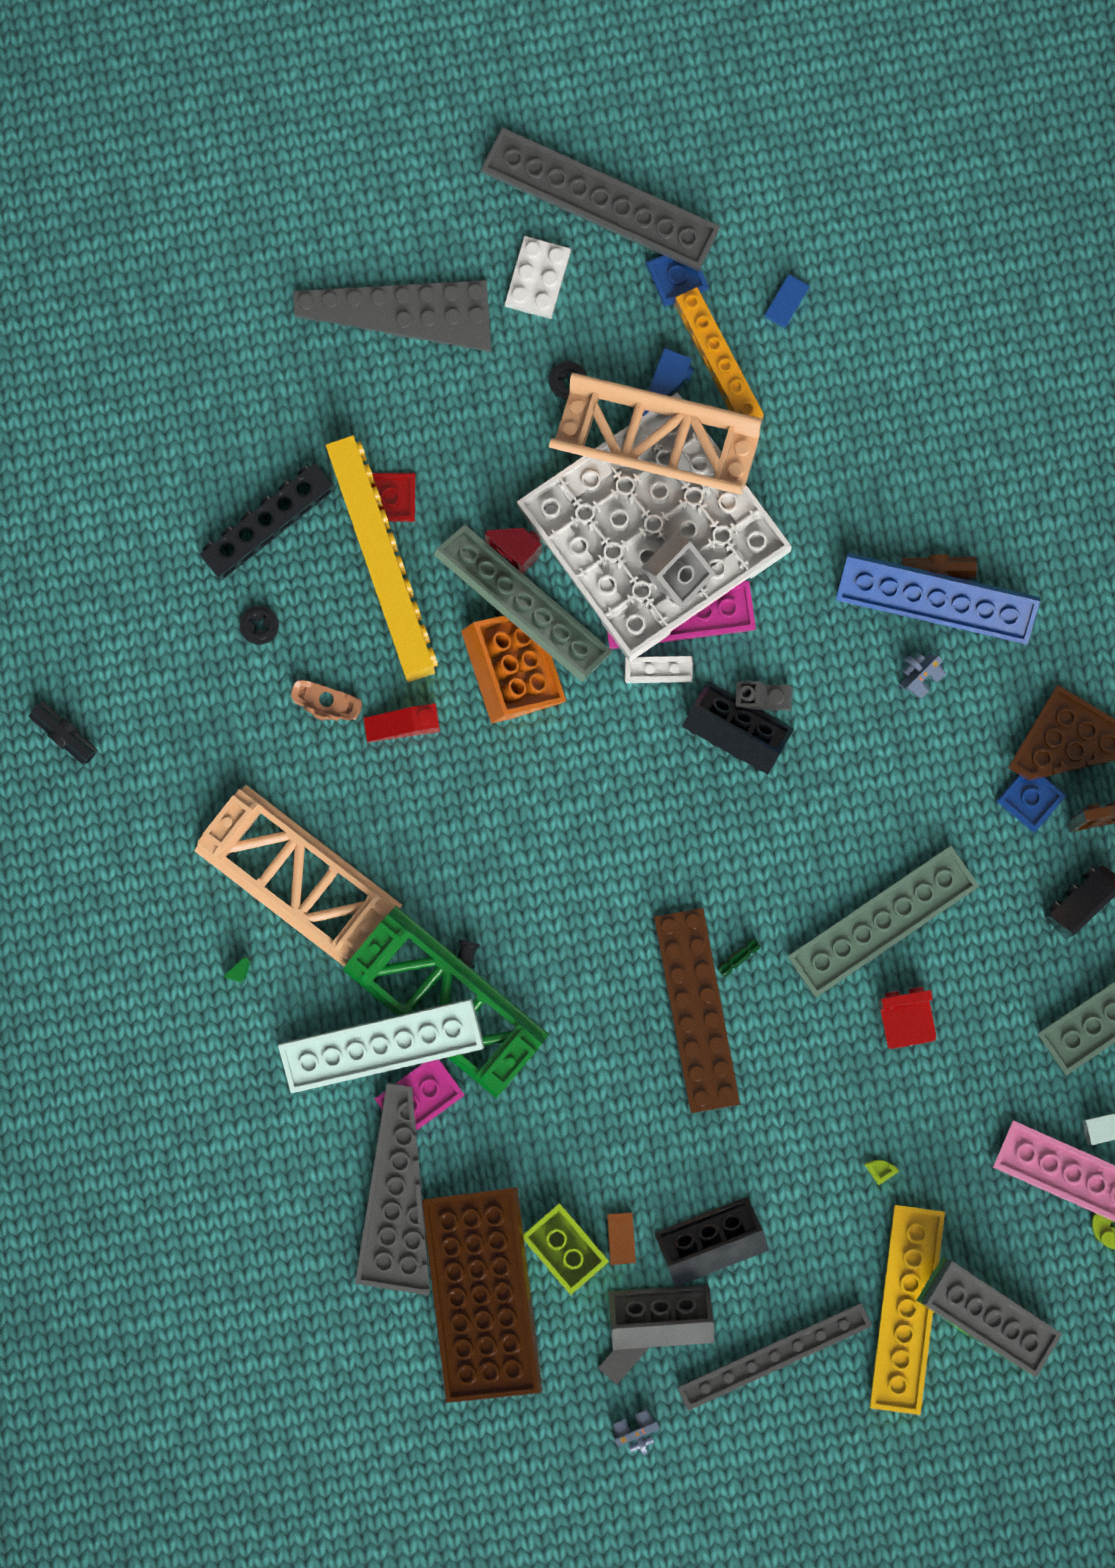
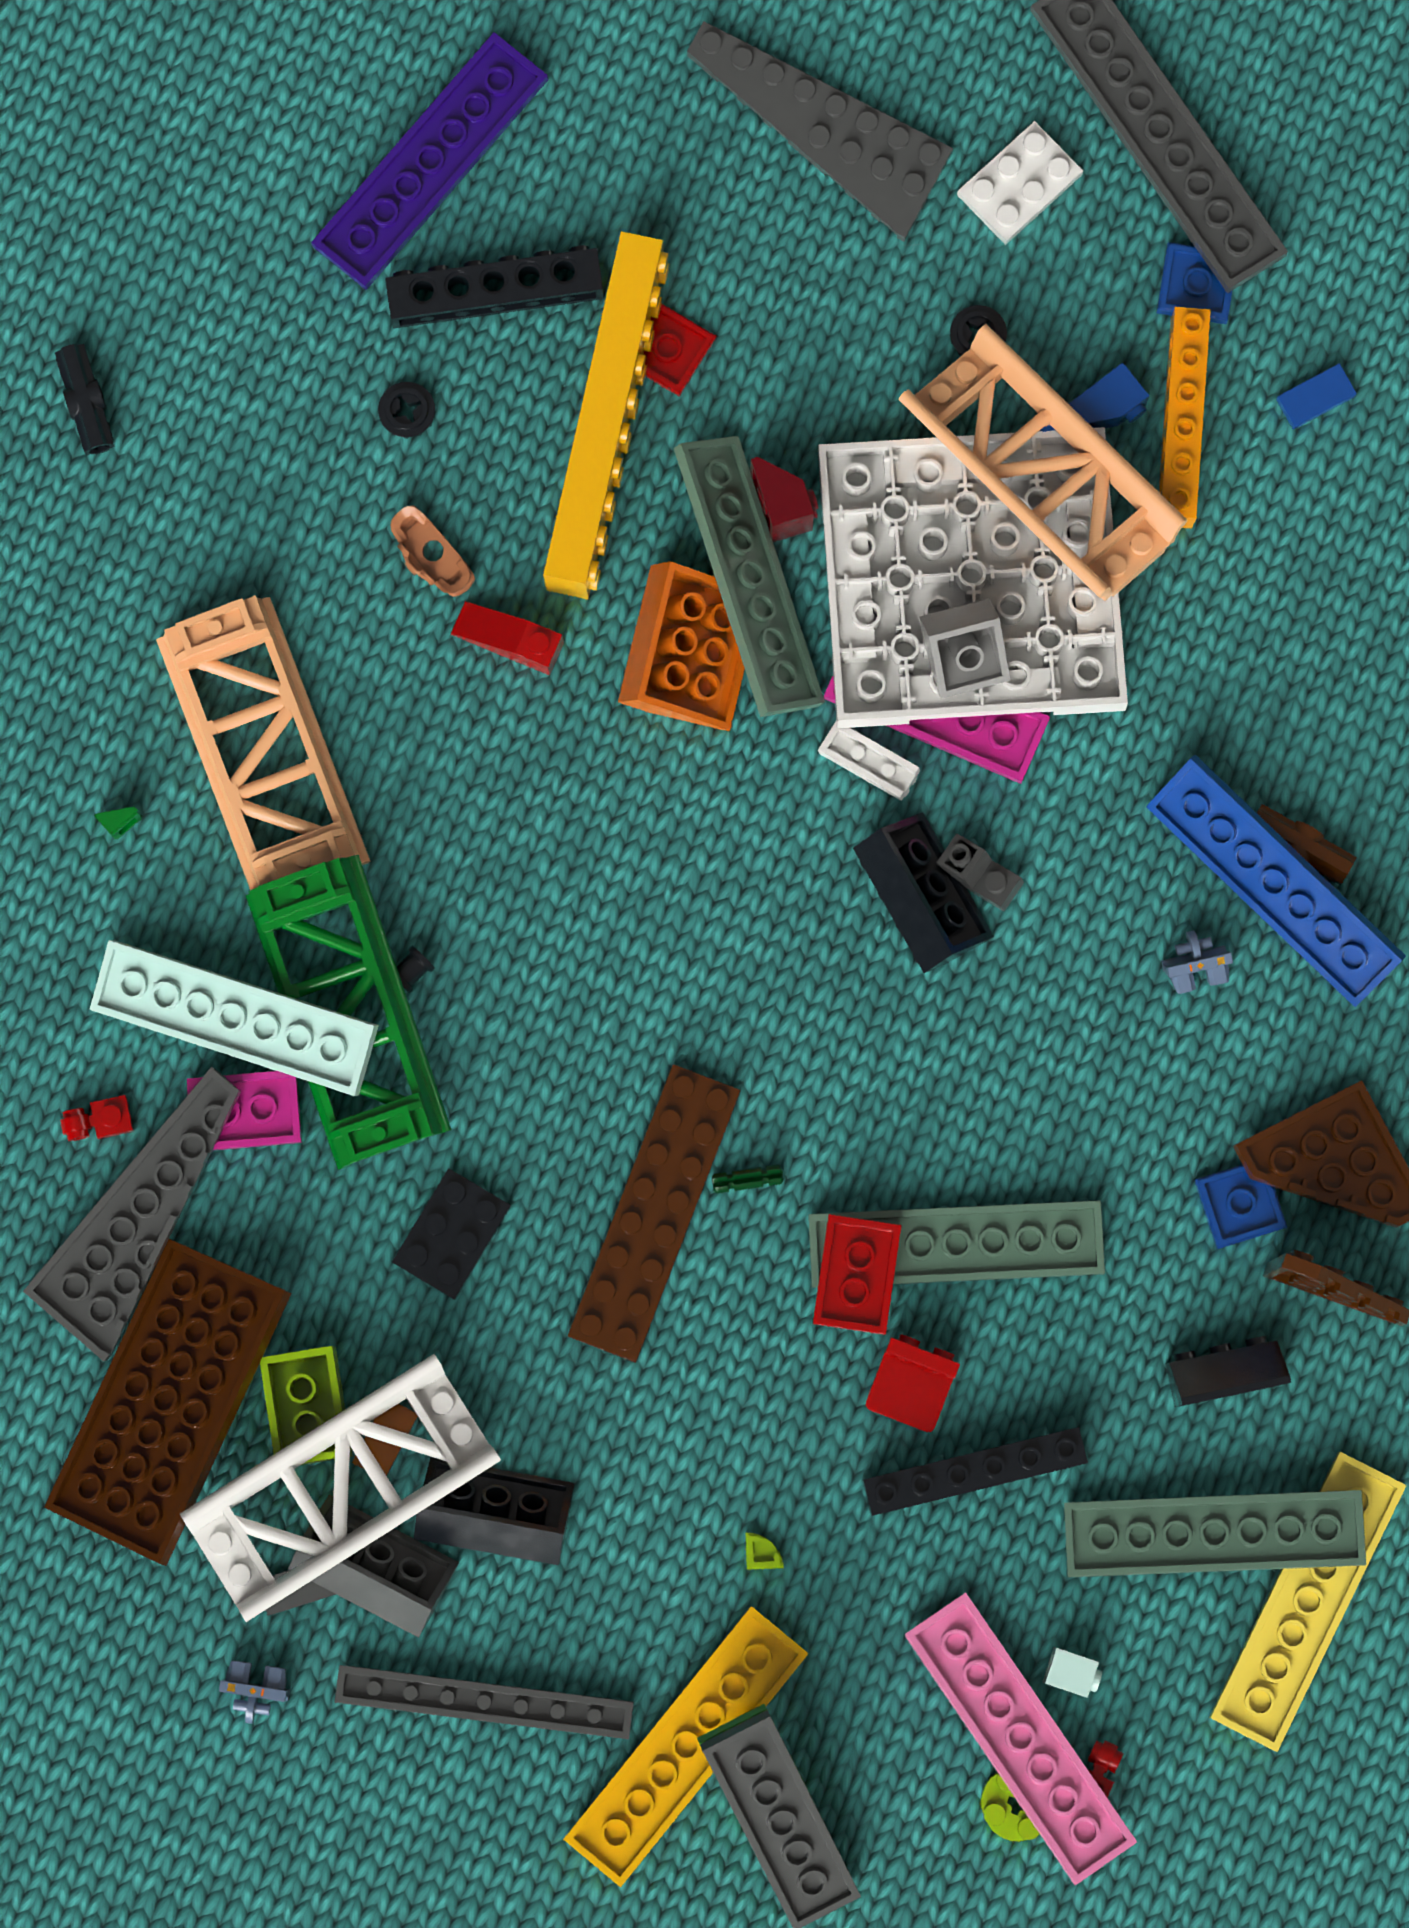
camera: 35 degrees right, 0 degrees up
(181, 469) = (429, 161): none -> dark purple plate
(341, 1150) = (108, 1117): none -> red plate
(566, 1352) = (225, 1536): none -> white piece
(586, 1095) = (451, 1234): none -> black plate
(838, 974) = (857, 1274): none -> red plate
(975, 1047) = (974, 1471): none -> black brick

